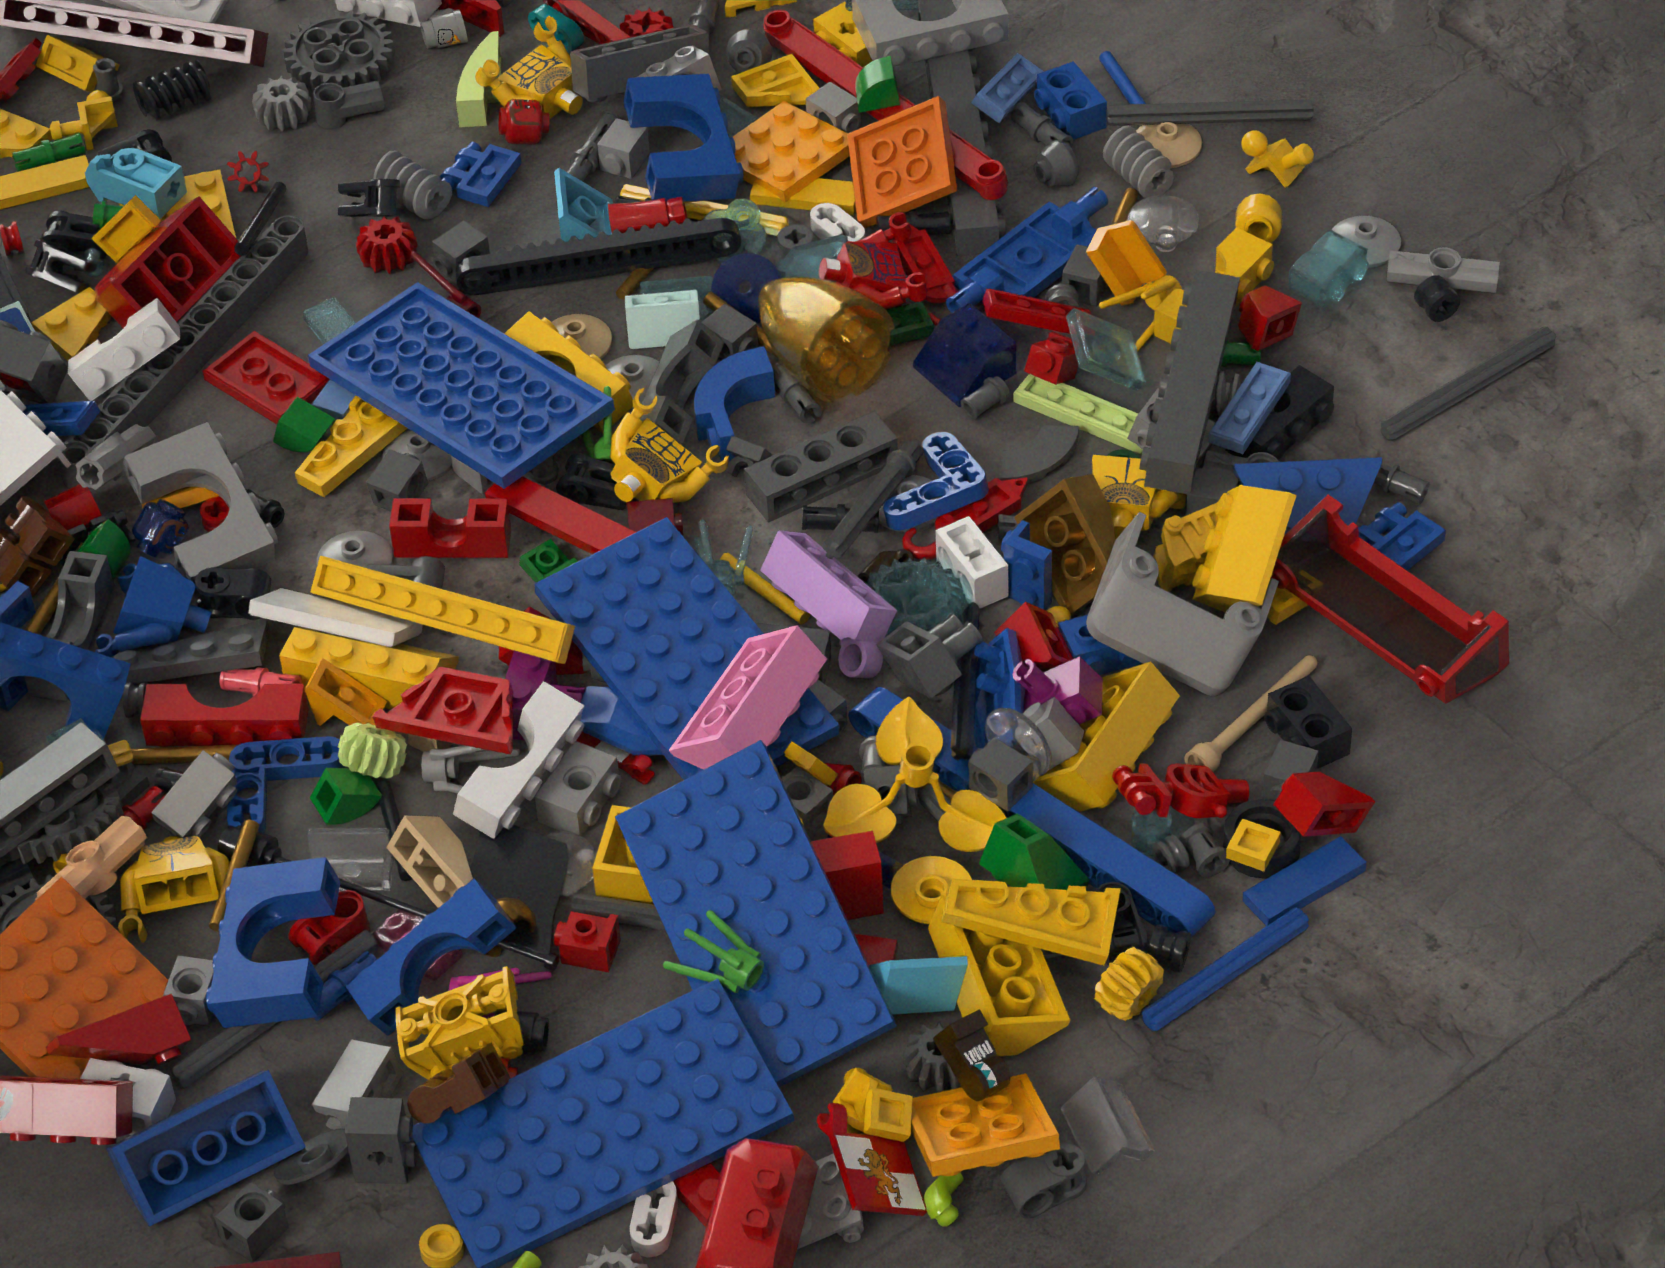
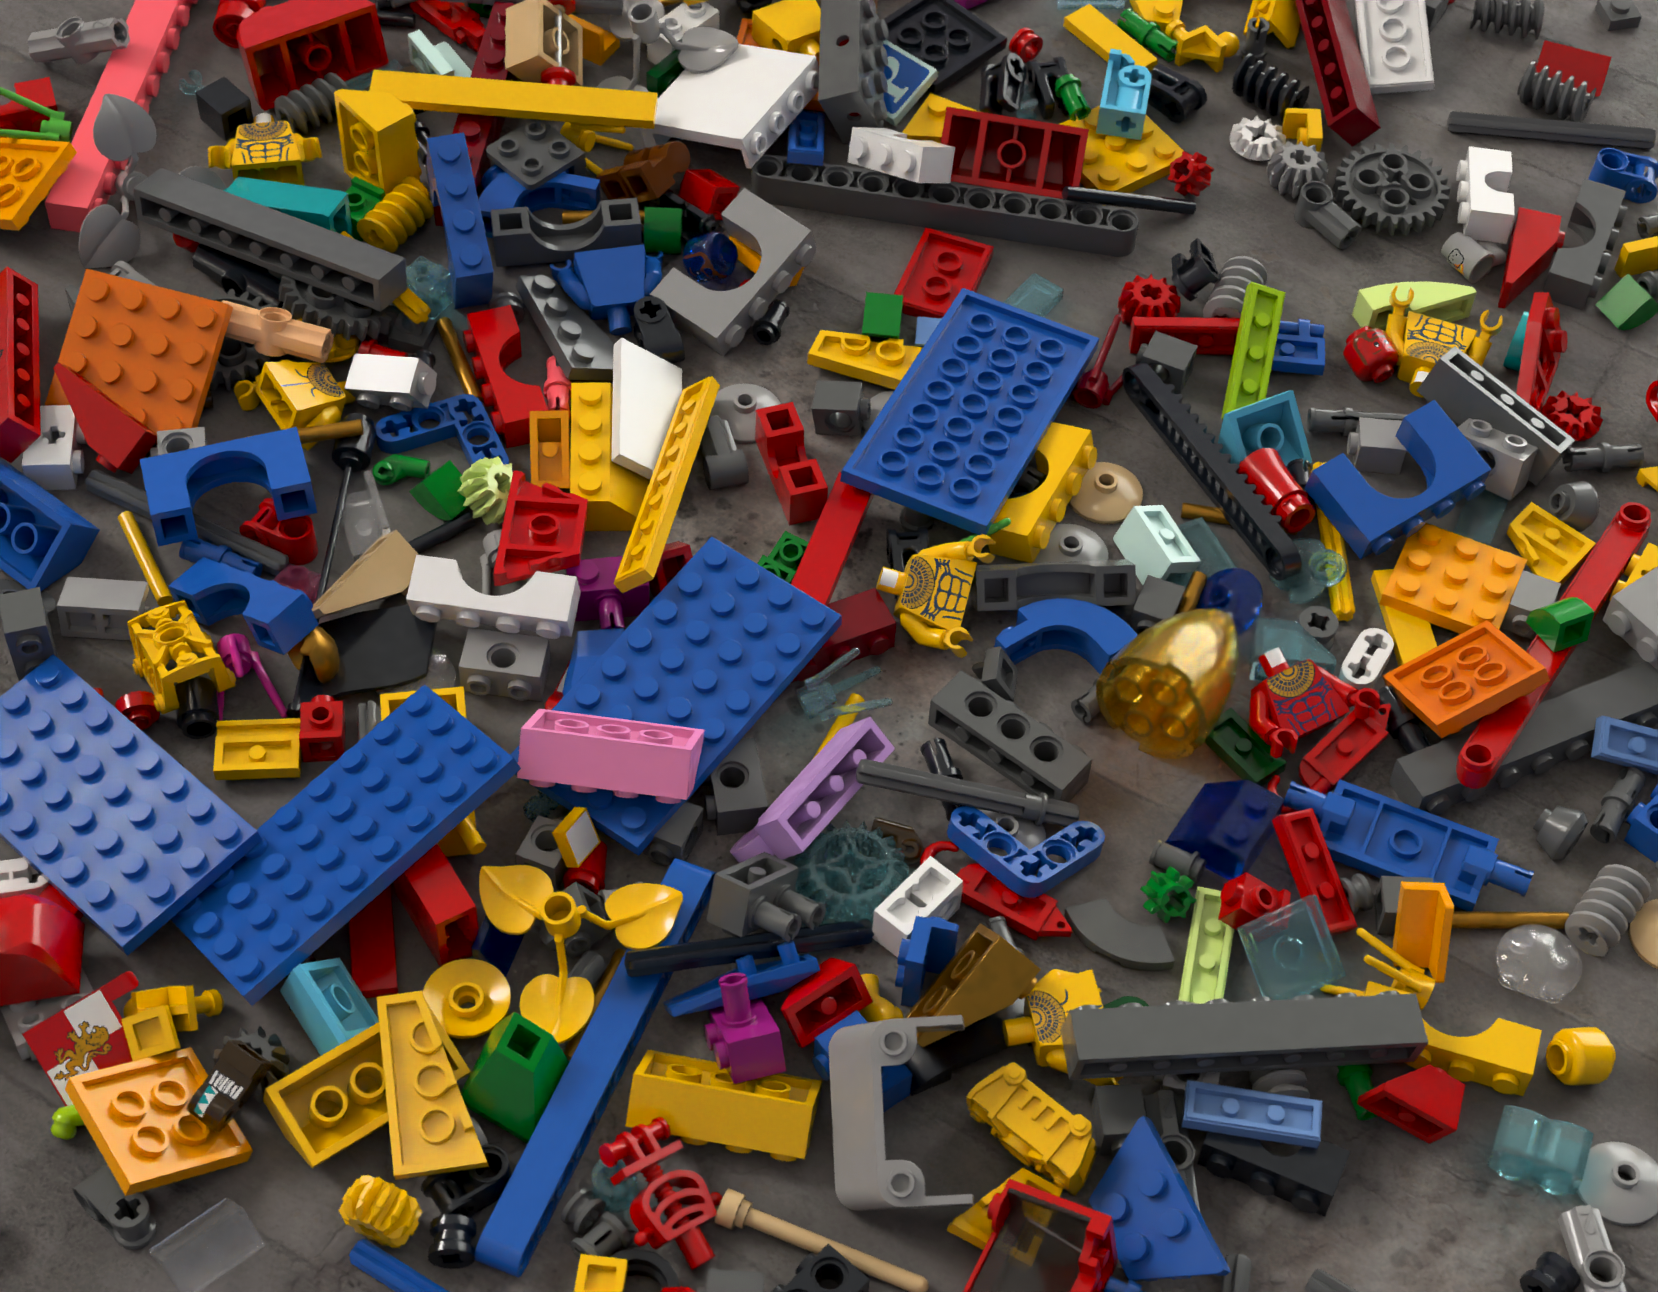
camera: 65 degrees right, 5 degrees up
(107, 459) = (775, 190): light grey piece -> none
(126, 229) = (1052, 104): yellow tile -> none
(218, 129) = (1262, 148): none -> white gear
(239, 81) = (1304, 126): none -> yellow bracket
(290, 825) = (399, 466): none -> green arm
(295, 1052) = (145, 558): none -> yellow bar
(444, 215) = (1209, 334): none -> red tile
(459, 1087) = (87, 670): reddish brown legs -> none
(490, 189) = (1254, 346): none -> lime tile
(587, 994) = (257, 749): none -> yellow plate
(740, 967) = (267, 837): bright green plant -> none
(1000, 774) = (609, 1007): dark grey brick -> none
(1019, 408) = (1179, 896): none -> green gear
(1021, 735) = (646, 1013): clear dish -> none
(1058, 728) = (688, 1040): light grey brick -> none
(1242, 547) = (1001, 1148): yellow slope -> none

